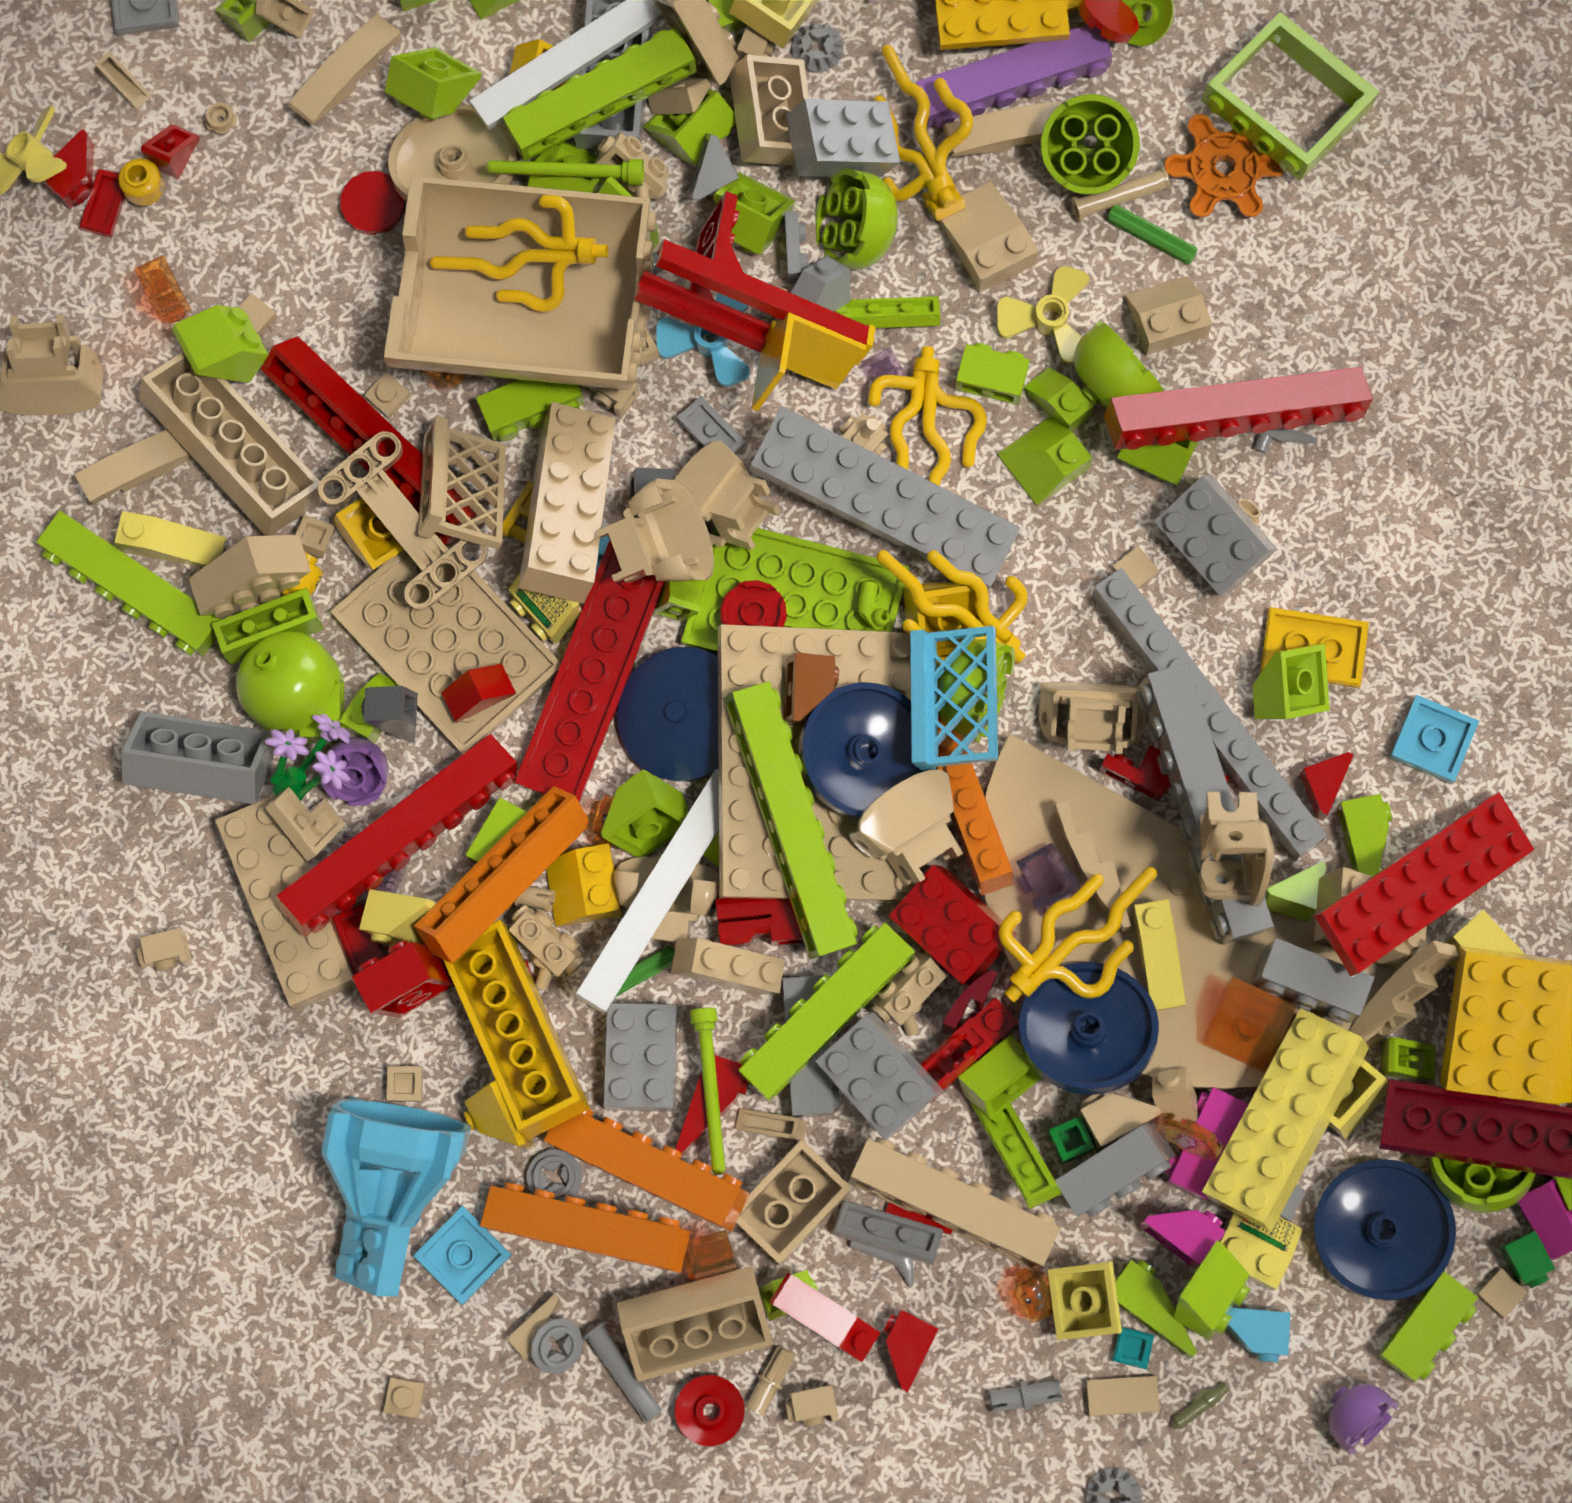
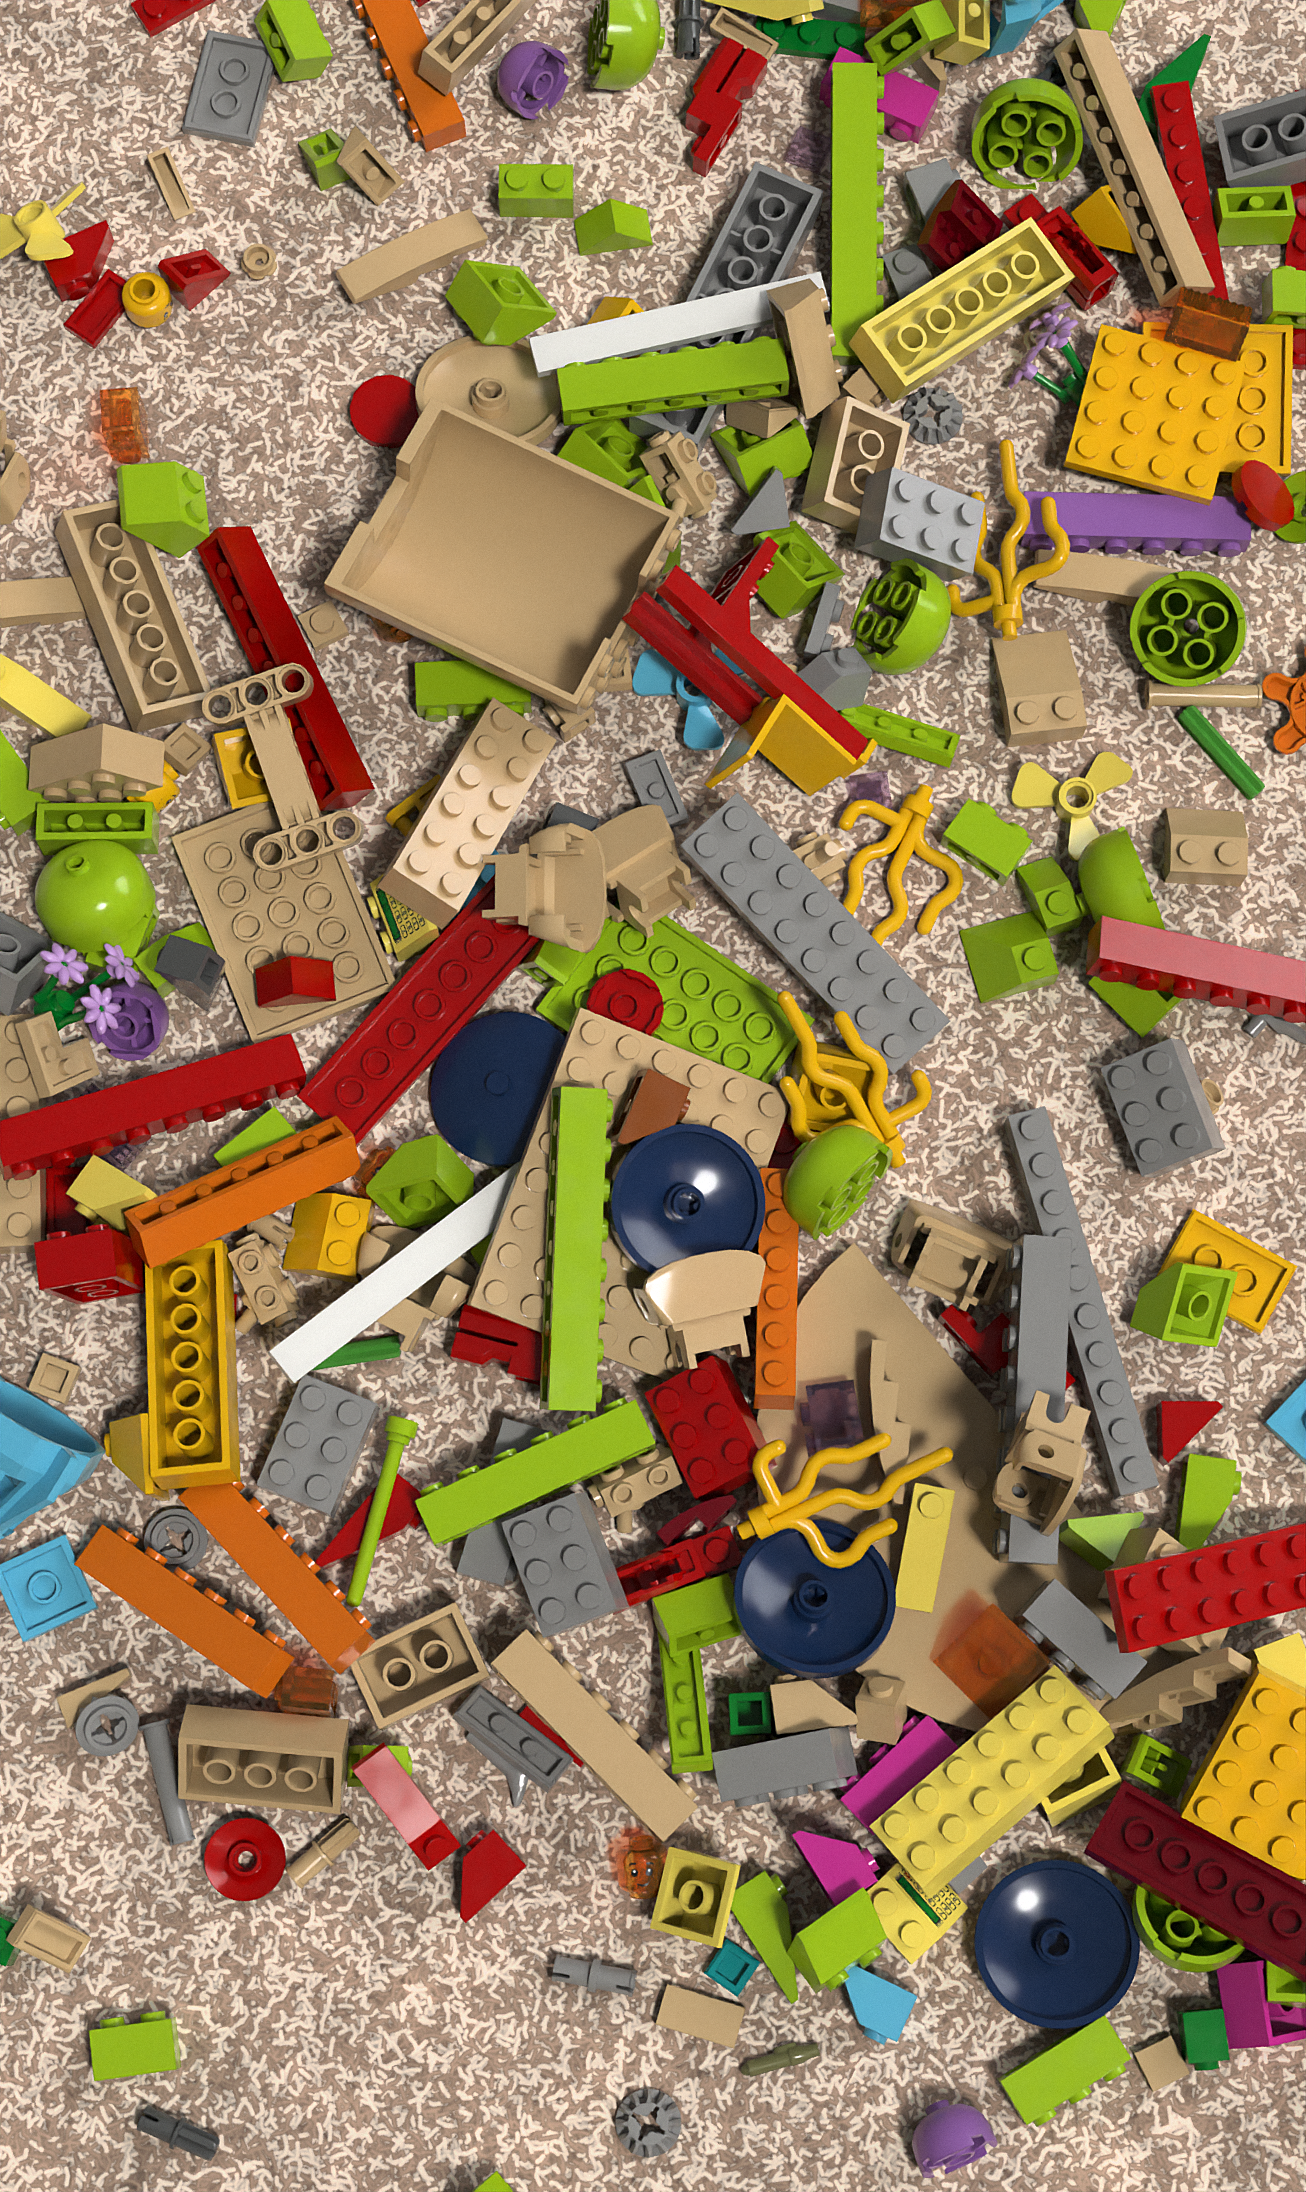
camera: 15 degrees right, 0 degrees up
(258, 312) = (218, 487): tan tile -> none
(434, 498) = (332, 742): tan fence -> none
(560, 251) = (566, 538): yellow plant -> none
(629, 171) = (674, 478): lime piece -> none
(727, 966) = (448, 1382): tan brick -> none
(771, 1125) = (432, 1573): tan piece -> none
(812, 1406) = (358, 1897): tan brick -> none
(869, 609) = (752, 1047): lime arm -> none
(926, 704) = (771, 1170): medium azure fence -> none
(937, 208) = (995, 640): yellow tile -> none
(1137, 567) = (1064, 1112): tan tile -> none
(1189, 1136) = (877, 1760): clear orange tile -> none

